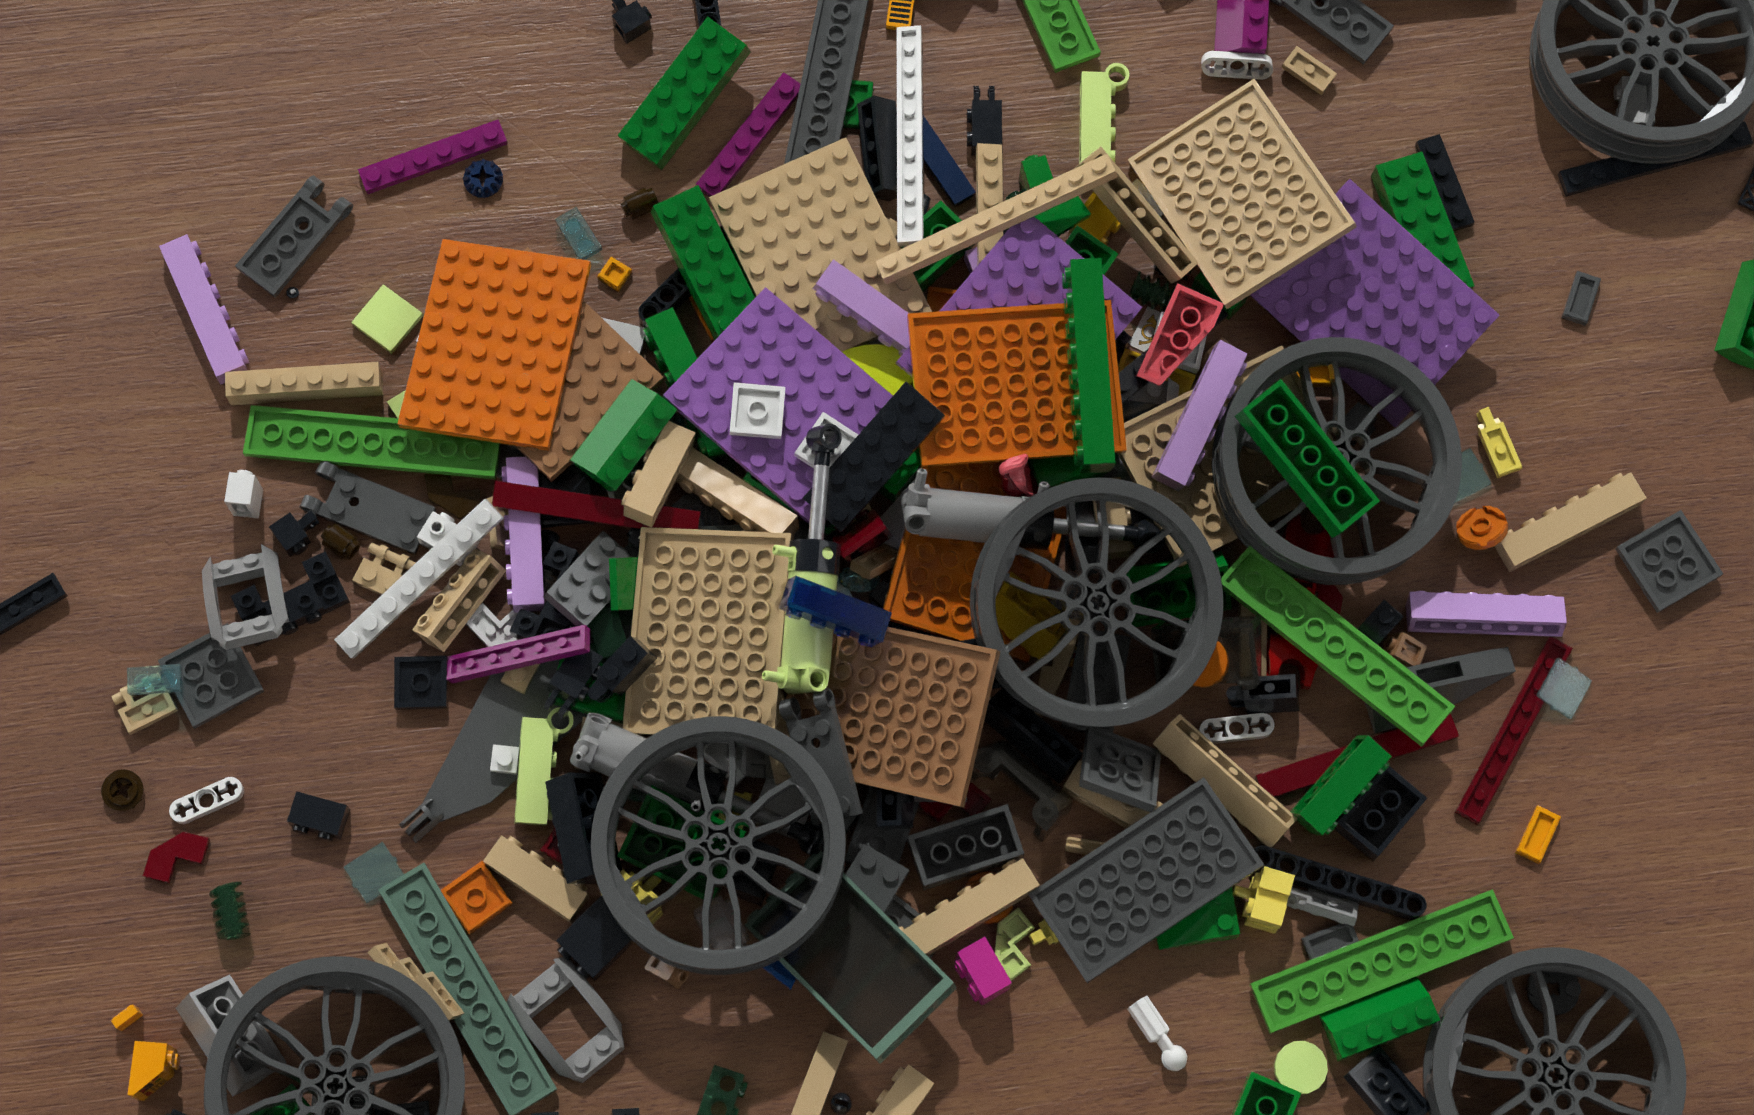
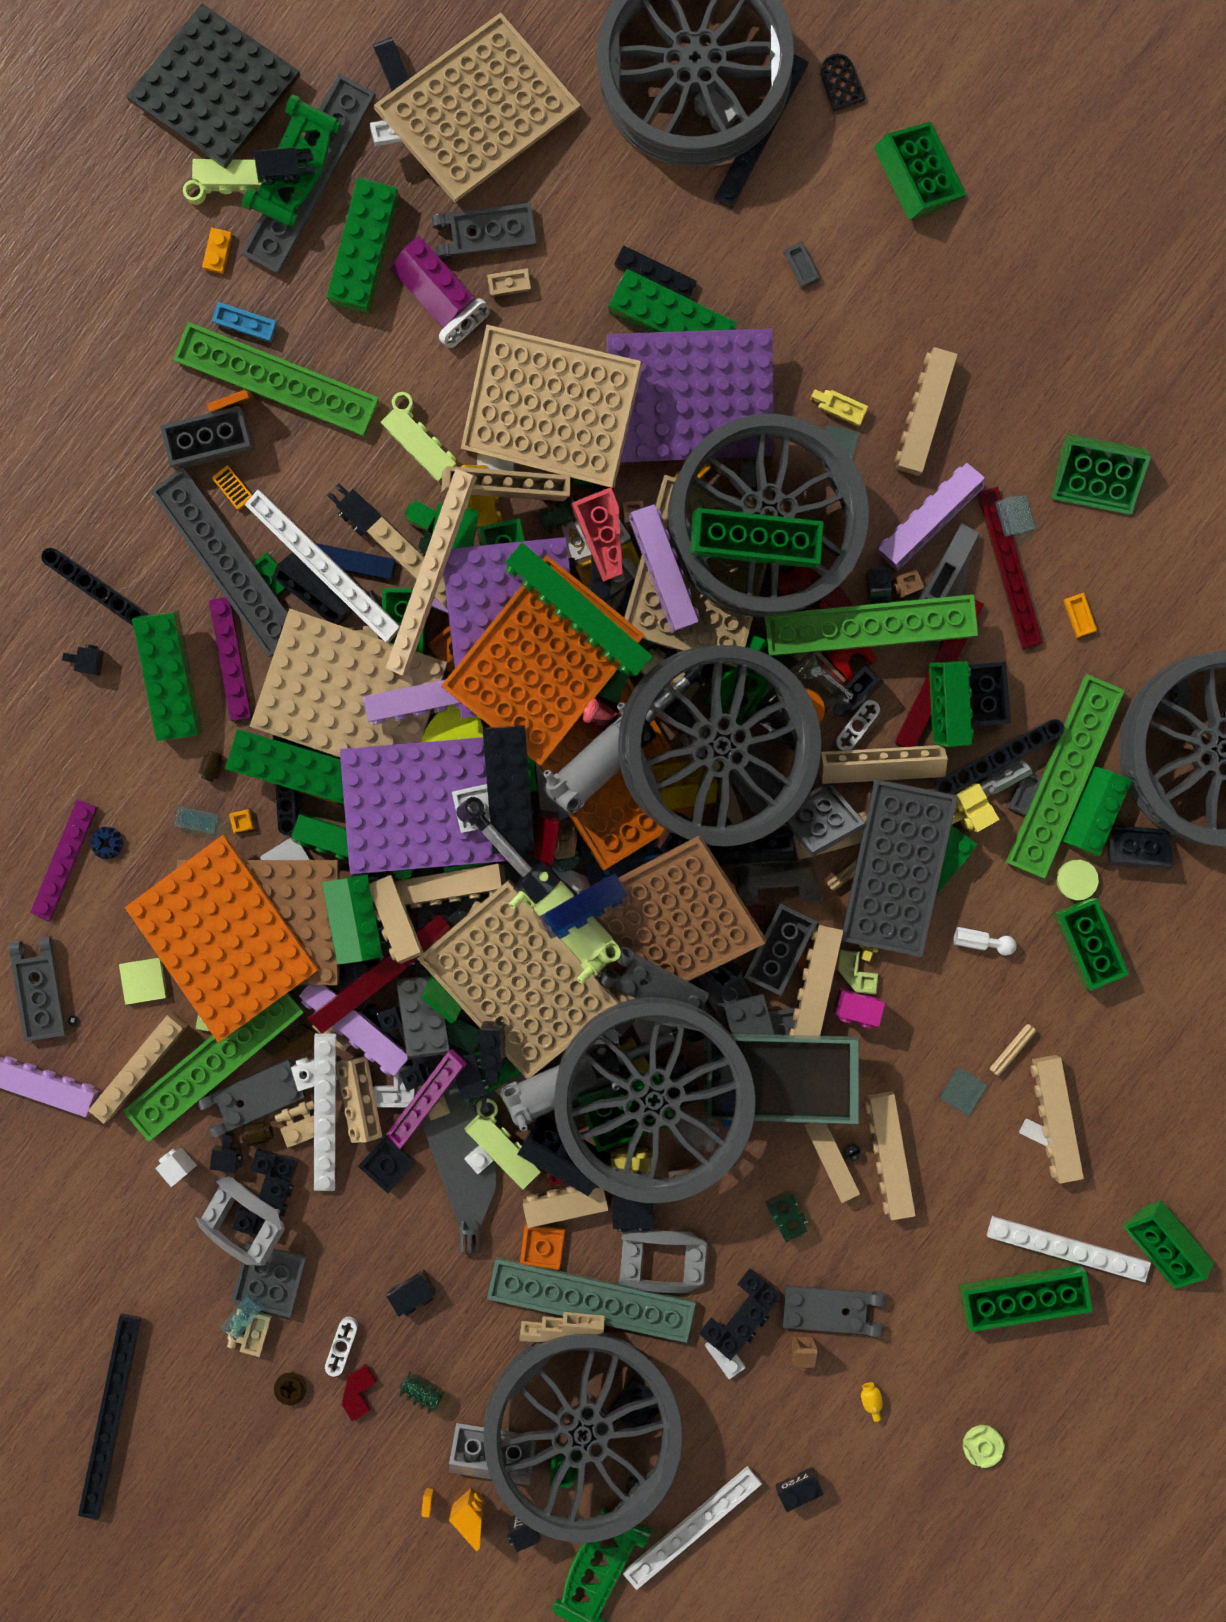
camera: 40 degrees left, 15 degrees up
(373, 871) = (473, 1288): clear light blue piece -> none
(757, 410) = (414, 829): white plate -> none
(1482, 528) = (881, 467): orange tile -> none
(1669, 561) = (1003, 378): dark grey plate -> none
(1677, 727) = (1100, 473): none -> green slope

